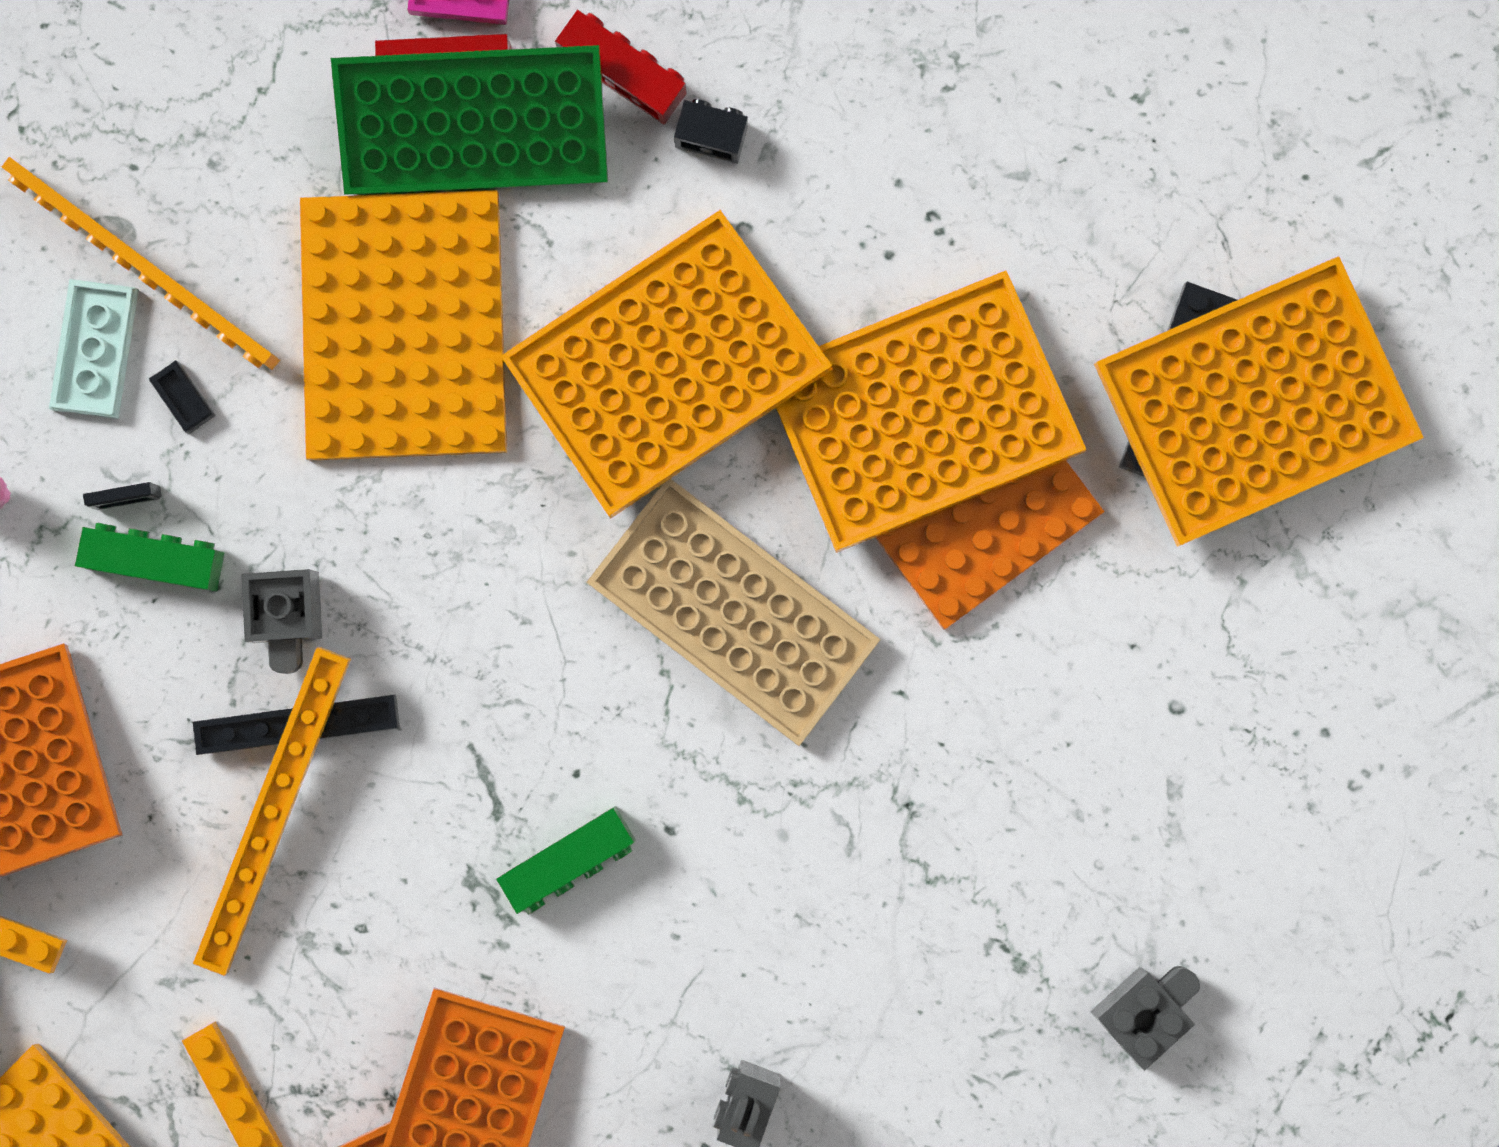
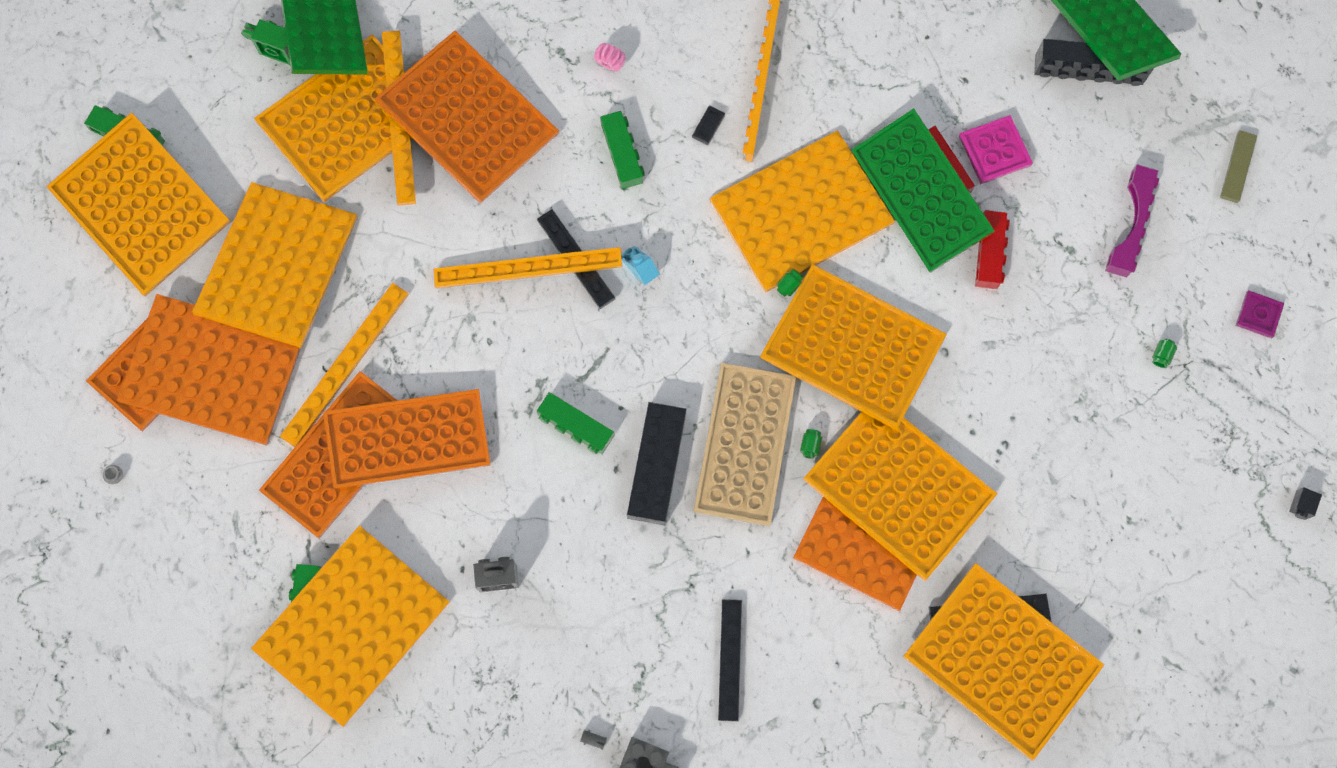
camera: 65 degrees right, 10 degrees down
(93, 349) = (710, 73): light aqua tile -> none
(122, 496) = (645, 121): black tile -> none
(283, 612) = (627, 223): dark grey brick -> none
(360, 627) = (640, 265): none -> medium azure slope
(513, 407) = (789, 282): none -> green brick
(696, 765) = (656, 463): none -> black brick
(711, 130) = (984, 309): black brick -> none
(785, 510) = (811, 443): none -> green brick
(1050, 806) = (730, 660): none -> black plate
(1067, 1074) = (593, 739): none -> dark grey pin

